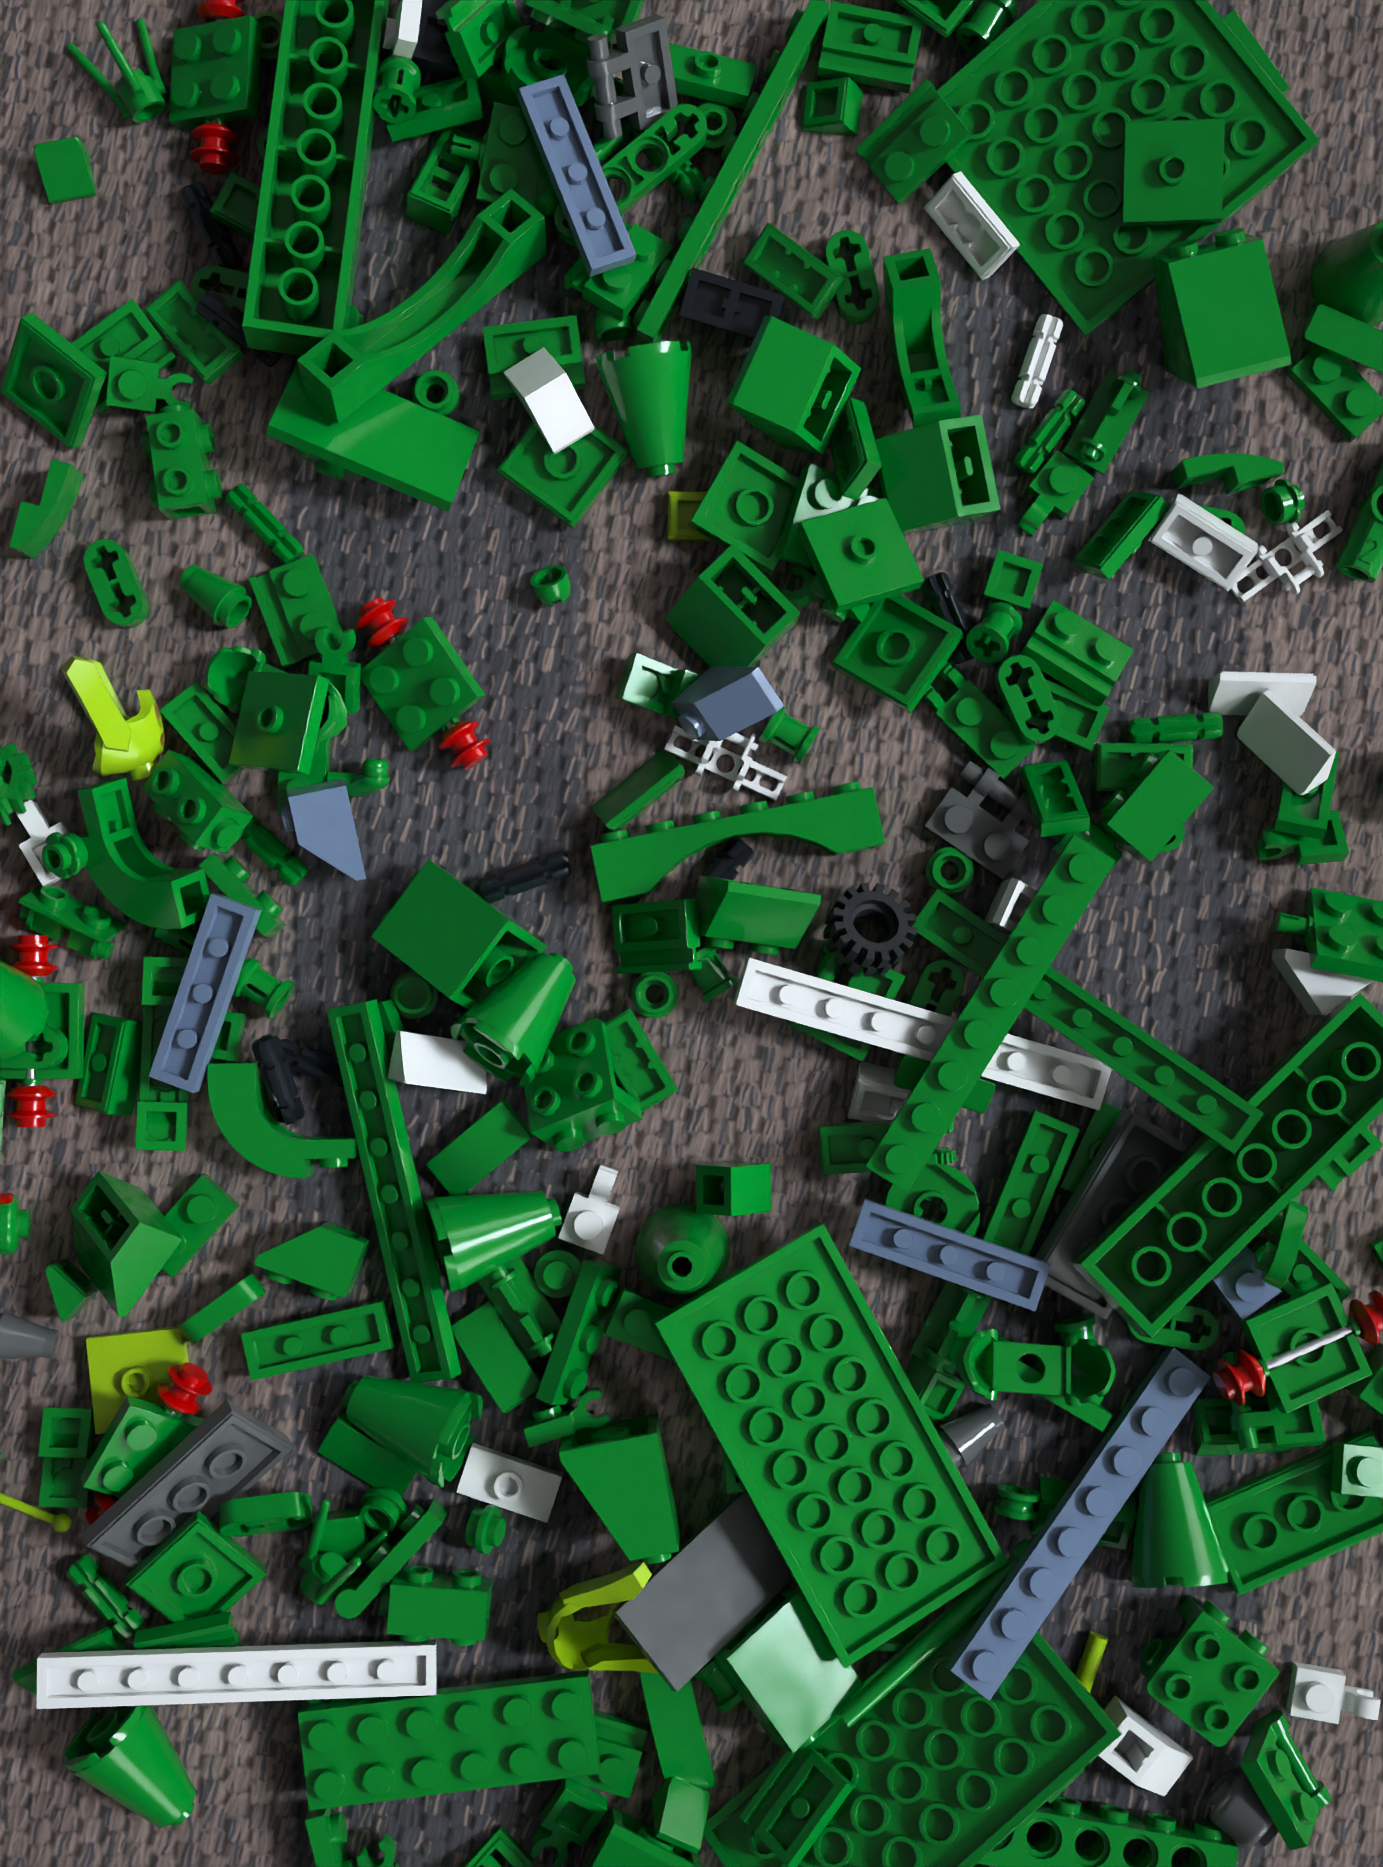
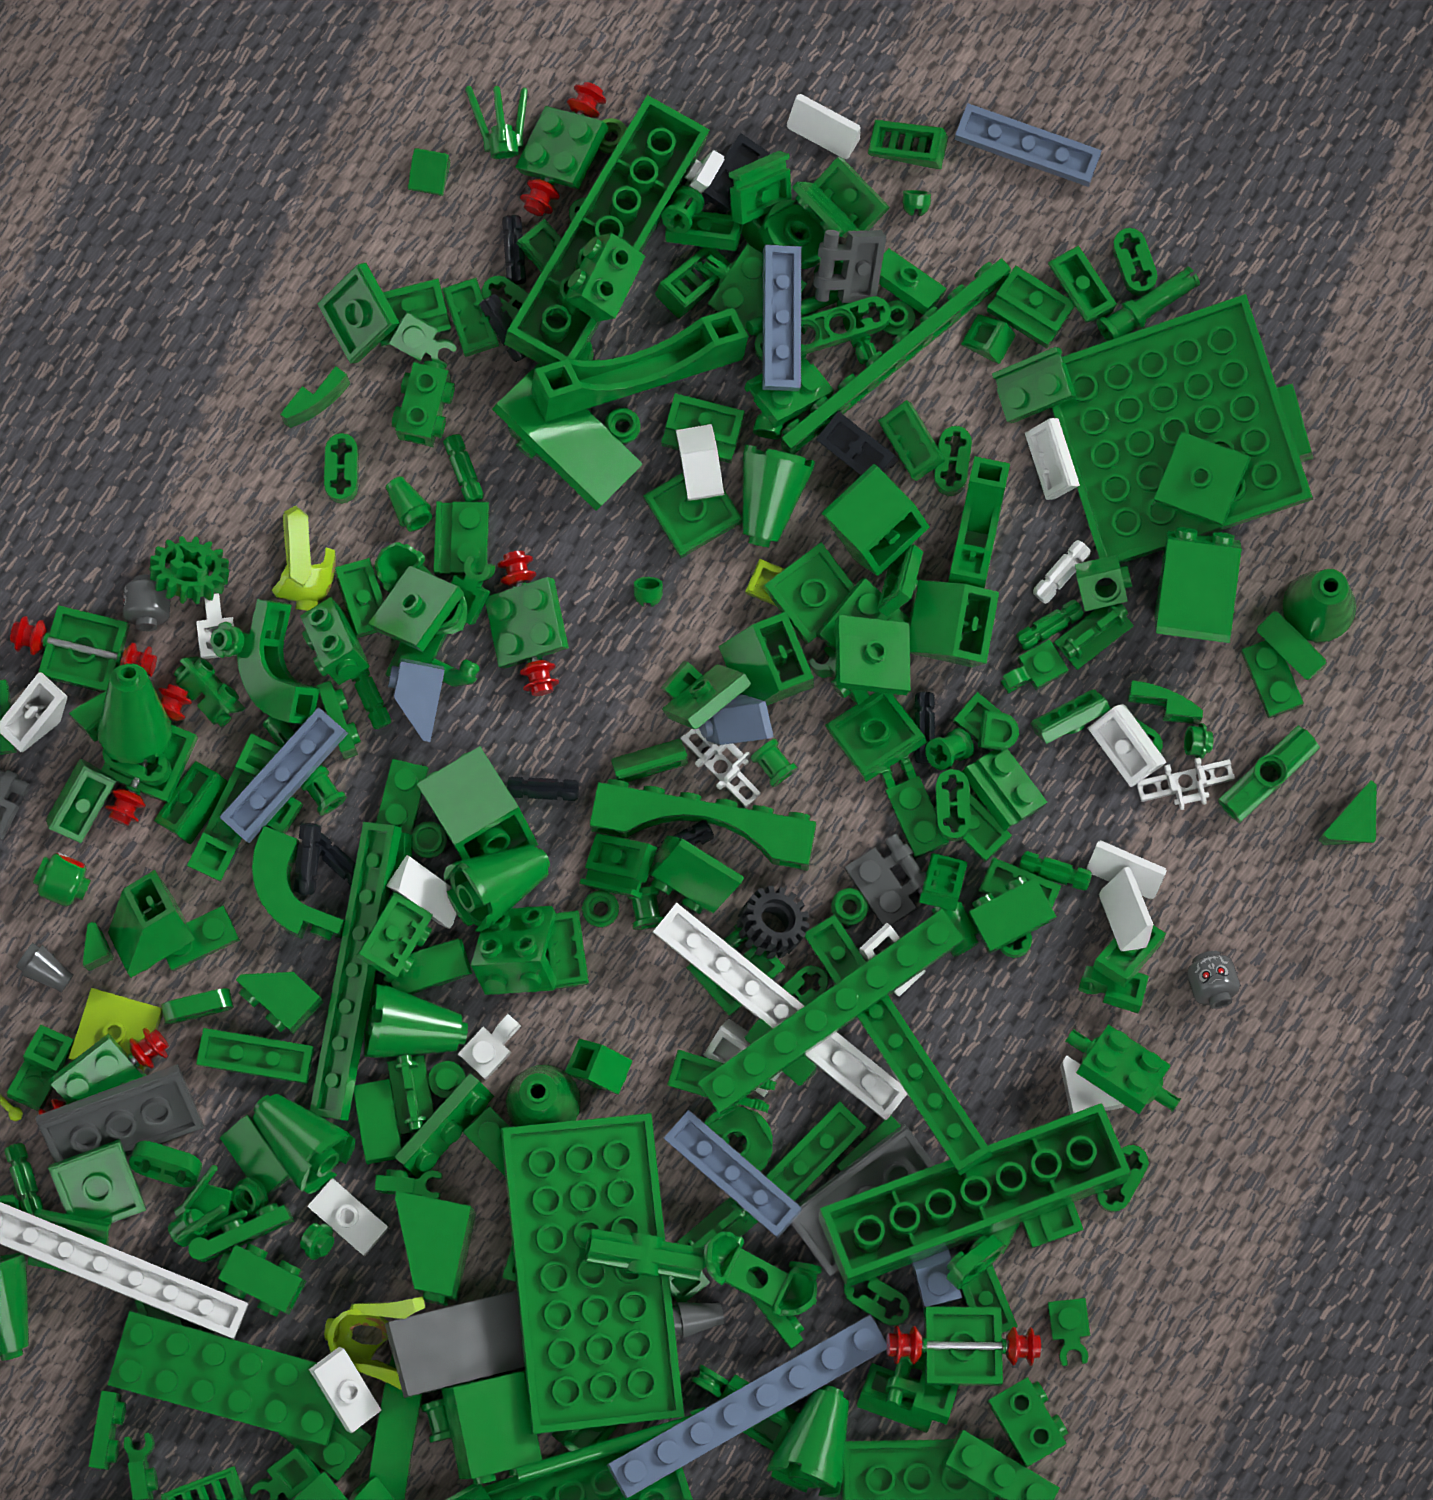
camera: 25 degrees right, 10 degrees down
(334, 206) = (604, 277): none -> green brick
(360, 957) = (402, 795): none -> green plate
(425, 1137) = (394, 937): none -> green bracket
(595, 1703) = (345, 1389): none -> white plate
(679, 688) = (706, 696): none -> green plate
(888, 1401) = (644, 1254): none -> green piece
(1043, 587) = (997, 731): none -> green tile
(1080, 345) = (1099, 596): none -> green brick

